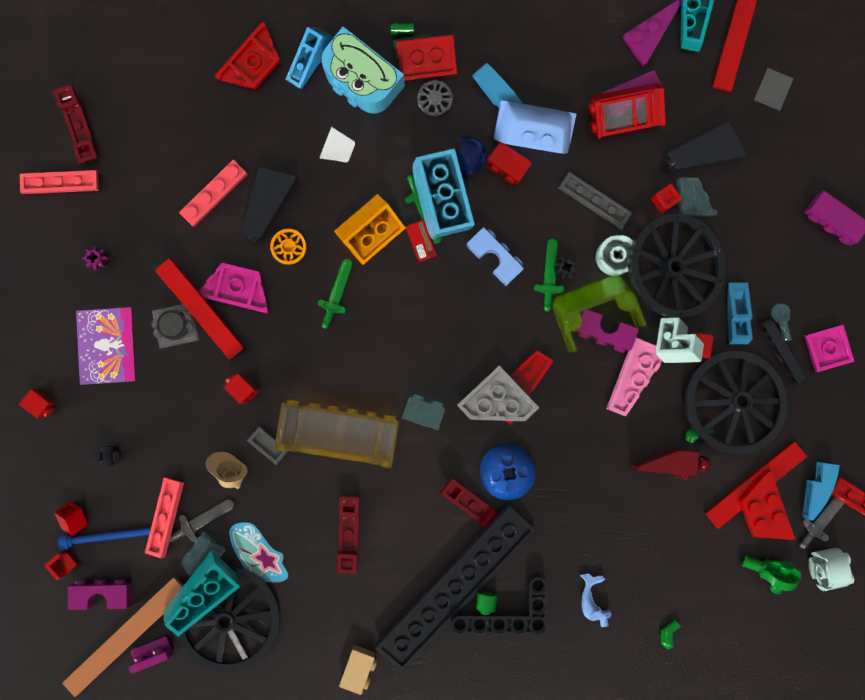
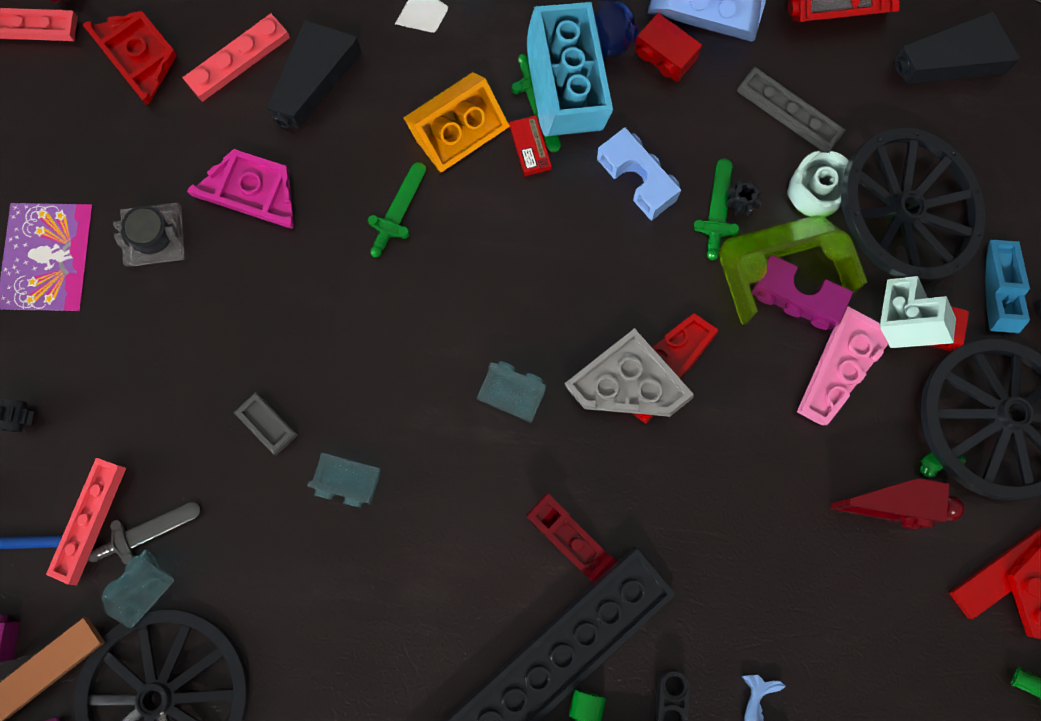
camera: 10 degrees right, 10 degrees down
(93, 254) = (50, 129): magenta gear -> none
(143, 195) = (135, 50): none -> red wing
(199, 308) = (191, 210): red tile -> none
(200, 594) = (124, 644): teal wedge -> none
(226, 469) = (195, 453): tan piece -> none
(241, 388) = (234, 328): red brick -> none
(256, 553) = (225, 594): sticker -> none
(288, 246) = (334, 137): light orange wheel -> none
(323, 478) = (345, 479): none -> clear light blue bracket
(337, 433) = (371, 410): clear windscreen -> none
(348, 534) = (374, 574): dark red slope -> none
(499, 465) = (624, 510): blue piece -> none
(666, 198) = (898, 110): red panel -> none
(694, 198) = (938, 116): clear light blue wing -> none

